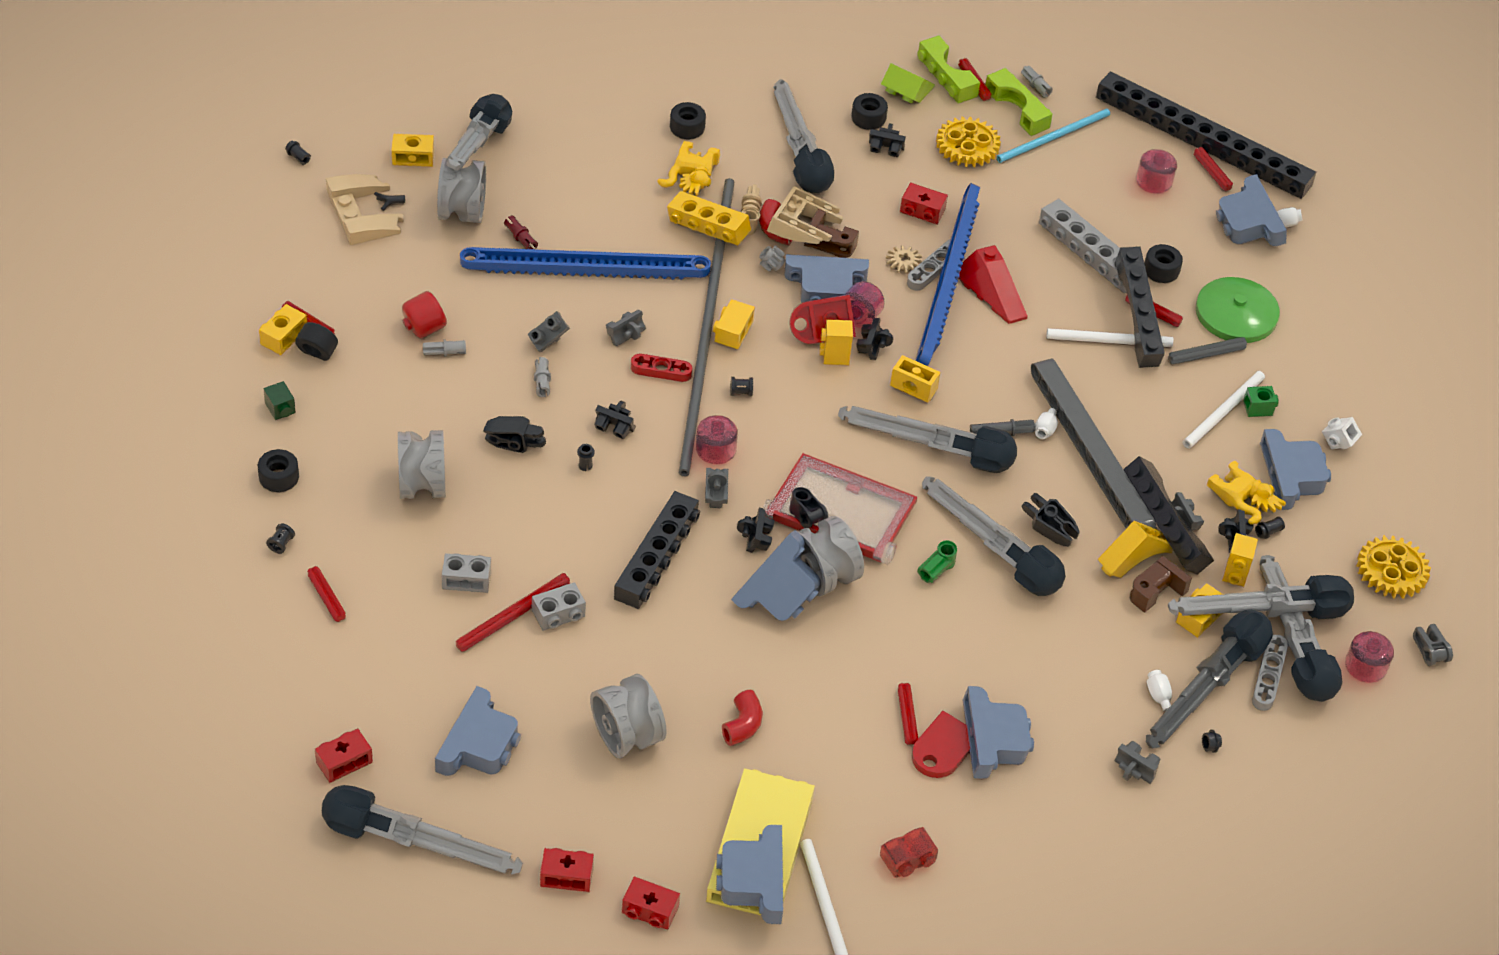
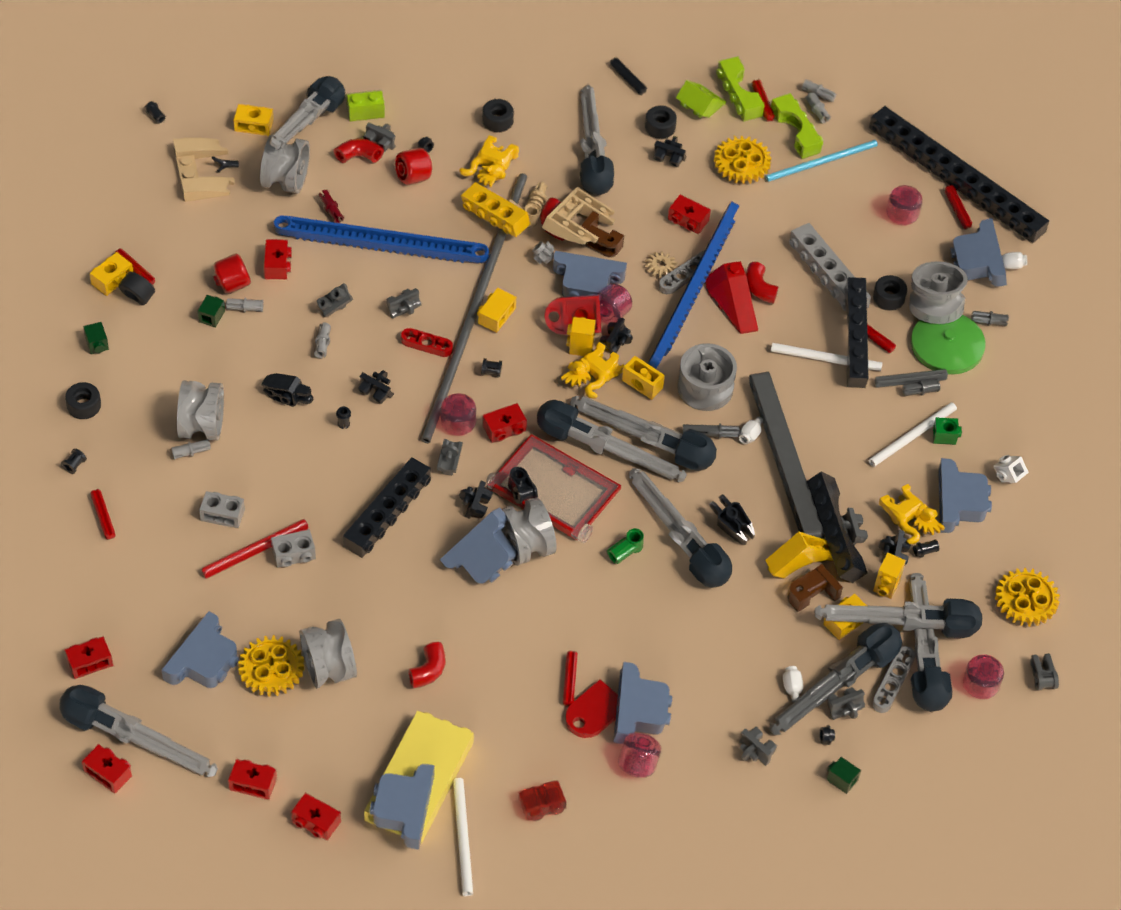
camera: 10 degrees right, 5 degrees up
(391, 878) = (107, 768): none -> red brick
(407, 358) = (211, 311): none -> dark green brick
(414, 510) = (190, 449): none -> light grey axle
(471, 295) = (276, 259): none -> red brick
(536, 123) = (365, 105): none -> lime slope
(539, 168) = (358, 147): none -> red cylinder
(560, 153) = (381, 135): none -> dark grey hips
(561, 739) = (271, 665): none -> yellow gear
(605, 181) = (413, 166): none -> red head
(613, 159) = (426, 144): none -> black plate
(770, 444) = (504, 423): none -> red brick
(821, 67) = (628, 76): none -> black axle
(833, 433) = (562, 421): none -> light grey piece
(858, 373) = (596, 366): none -> yellow animal
(986, 370) = (707, 377): none -> light grey piece
(1009, 787) = (639, 755): none -> clear pink head
(1020, 272) = (757, 285): none -> red cylinder
(1037, 65) = (819, 90): none -> light grey axle
(1218, 256) = (937, 292): none -> light grey piece
(1221, 359) = (921, 387): none -> dark grey axle
(1226, 705) = (847, 704): none -> dark grey hips
(1241, 782) = (843, 774): none -> dark green brick
(1277, 279) = (990, 318): none -> dark grey axle

